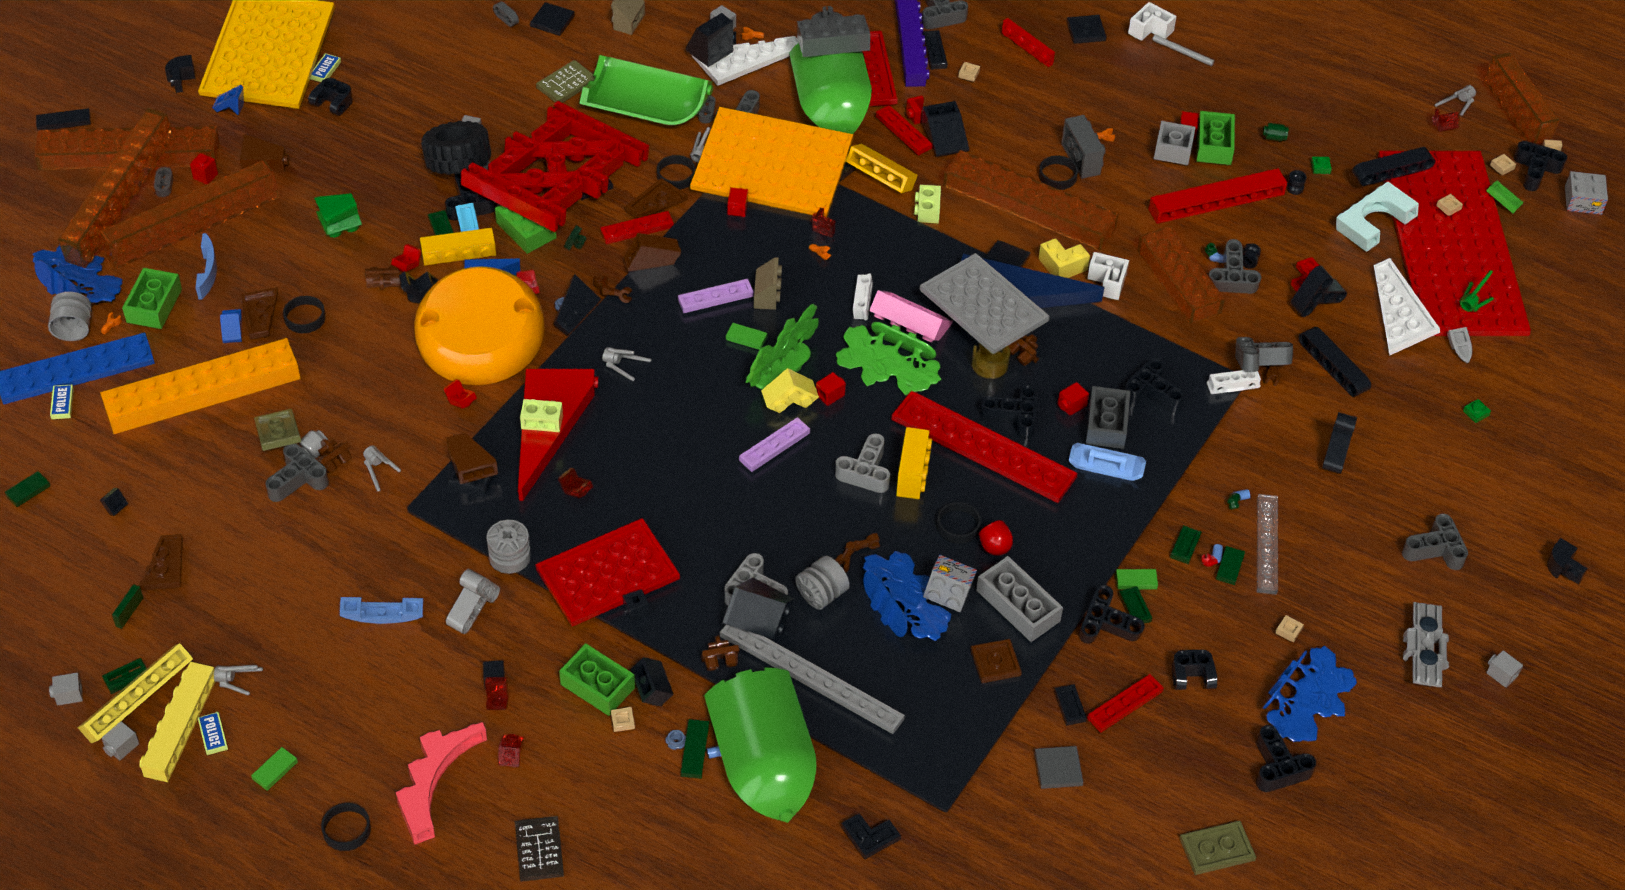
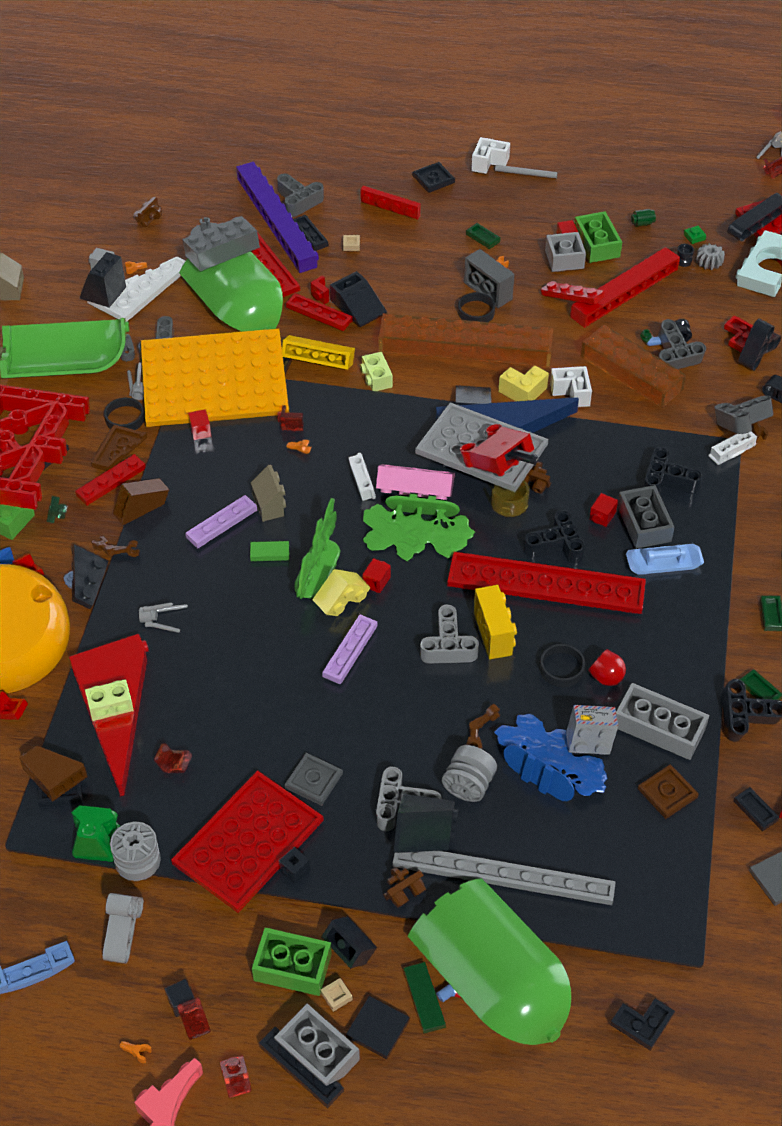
camera: 20 degrees left, 0 degrees up
(441, 702) = (136, 1050): none -> orange piece
(479, 518) = (94, 832): none -> green piece
(566, 763) = (299, 1072): none -> black plate
(586, 750) = (318, 1046): none -> light grey slope
(644, 757) = (377, 1027): none -> black tile
(676, 735) = (401, 990): sand blue plate -> none
(688, 542) = (313, 779): none -> dark grey tile
(990, 311) = (500, 451): none -> red piece
(1104, 103) = (483, 236): none -> dark green tile
(1136, 577) = (747, 661): bright green tile -> none
(1158, 185) = (572, 293): none -> red plate
(1322, 191) = (710, 256): none -> light grey gear

